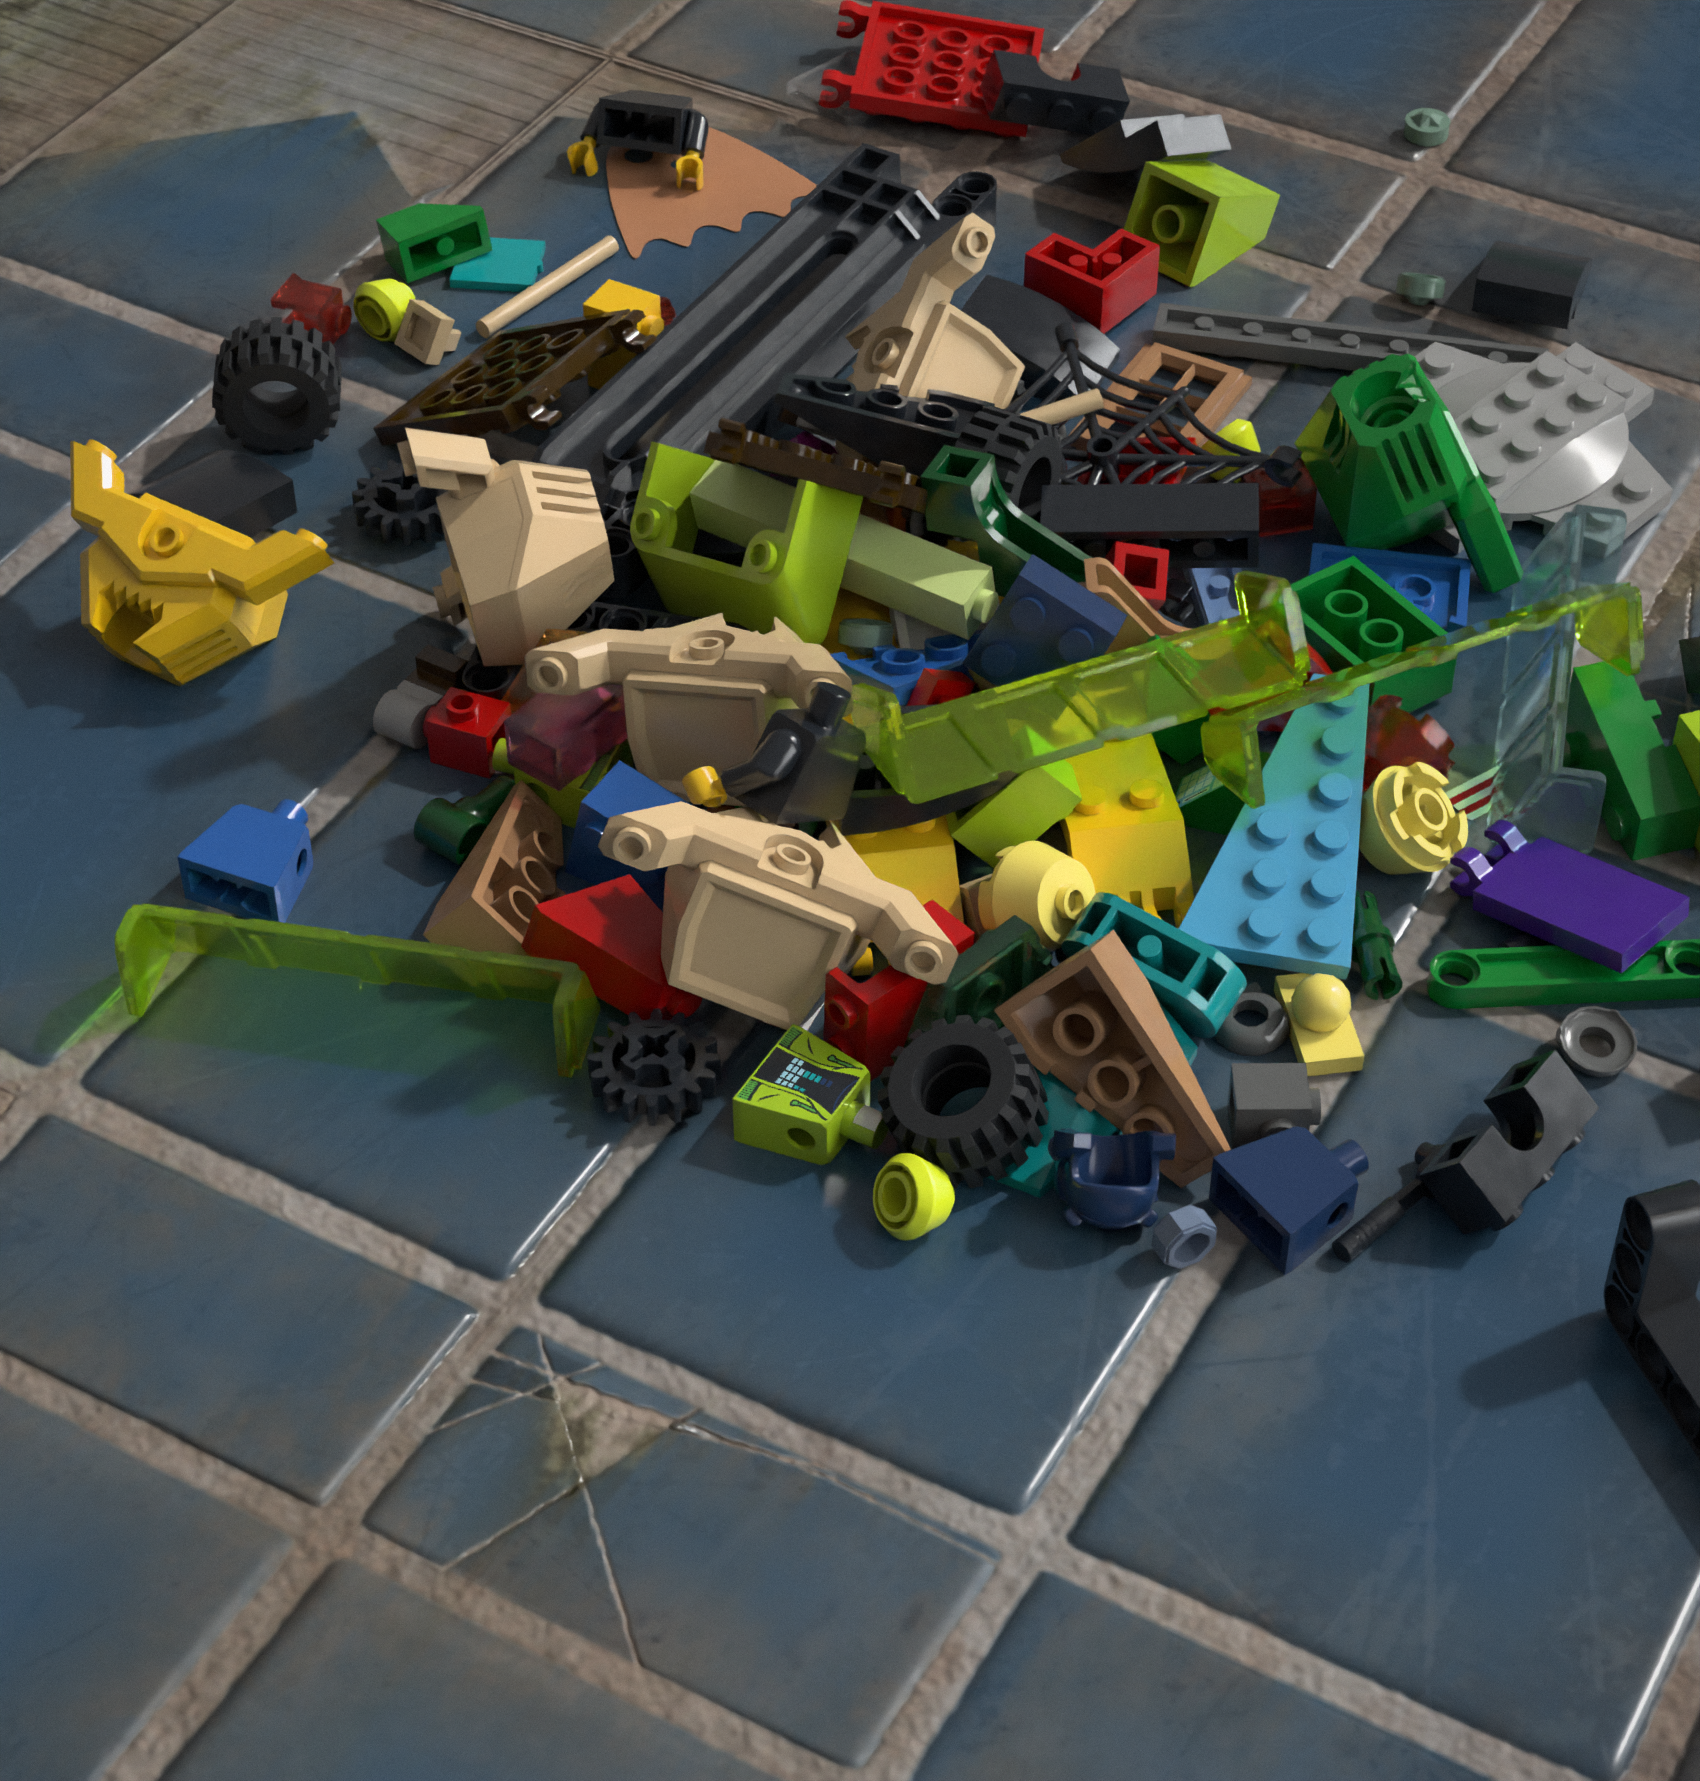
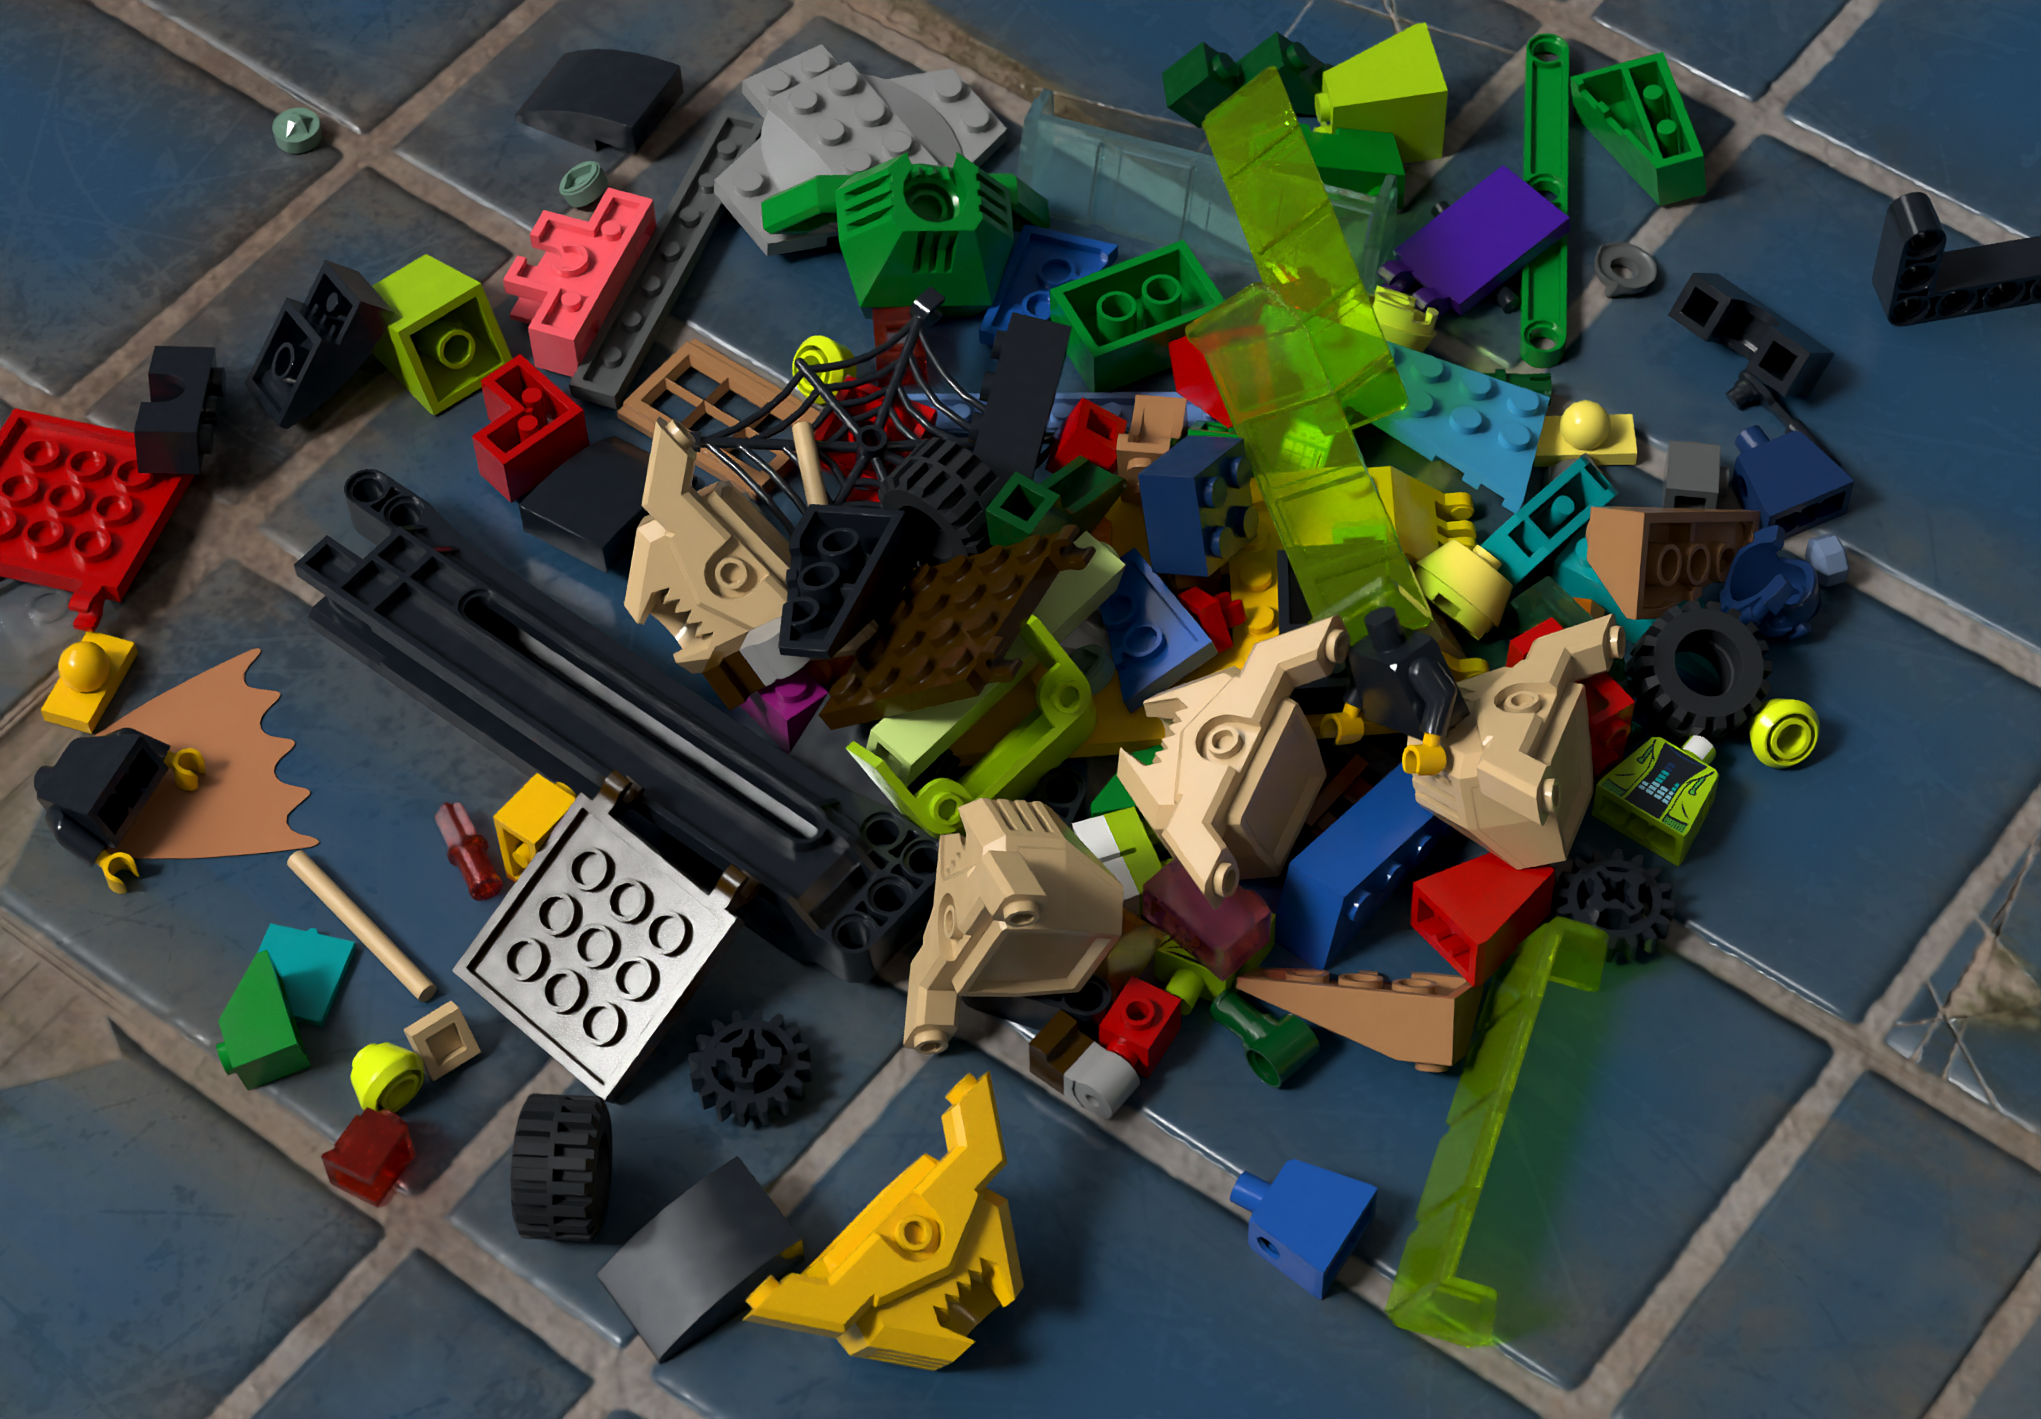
camera: 80 degrees left, 10 degrees up
(775, 113) = (88, 680): none -> yellow tile
(1301, 288) = (577, 276): none -> coral piece

